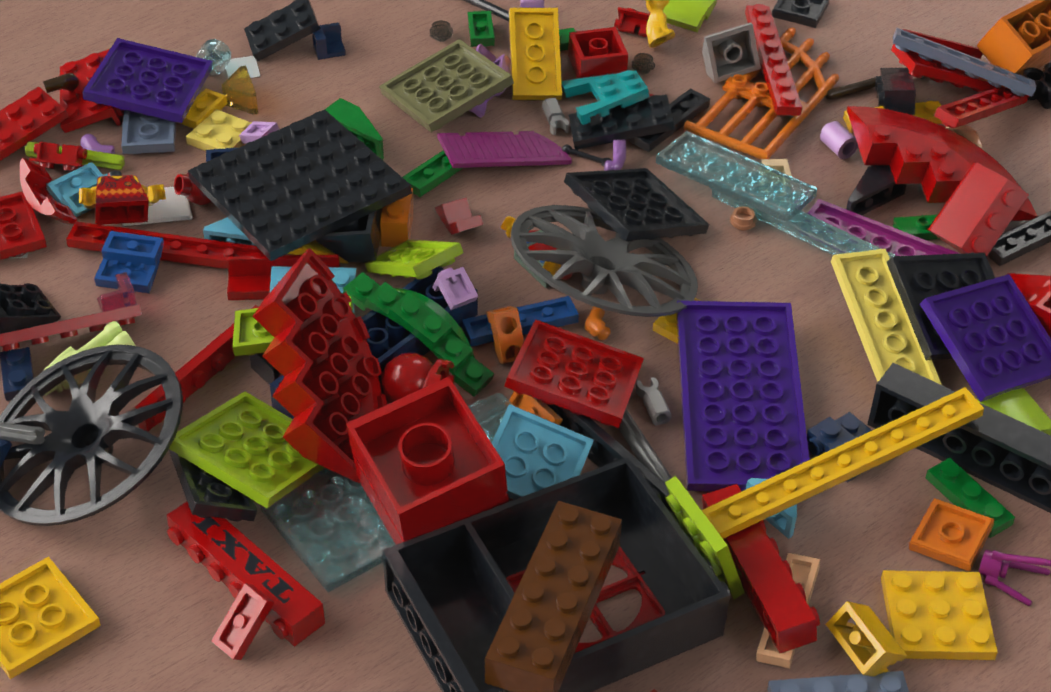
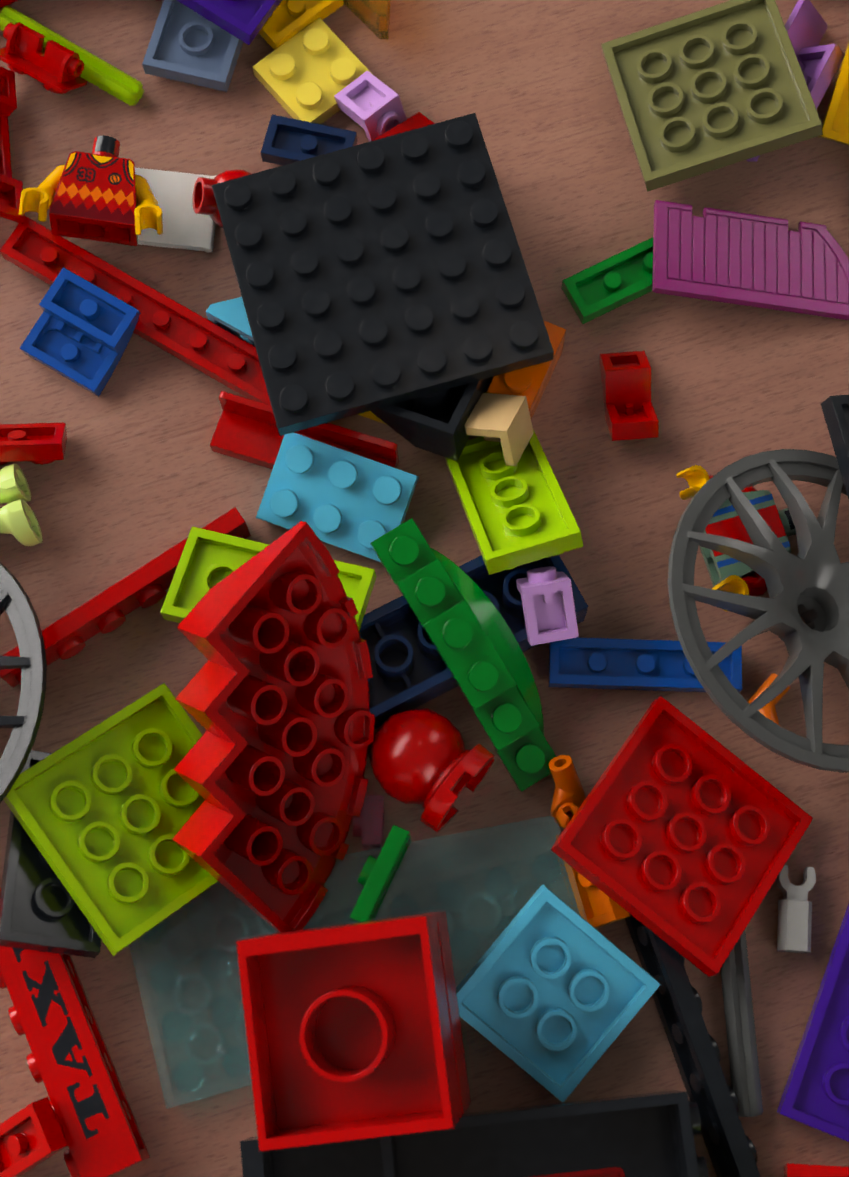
camera: 25 degrees right, 30 degrees up
(66, 188) = (54, 129): medium azure slope -> none
(90, 142) = (100, 44): medium lavender arm -> none
(120, 298) = (44, 401): clear pink panel -> none
(358, 124) = (519, 122): green slope -> none
(394, 233) = (502, 420): none -> tan panel
(499, 378) = (568, 789): none -> orange arm
(506, 332) = (607, 697): orange leg -> none

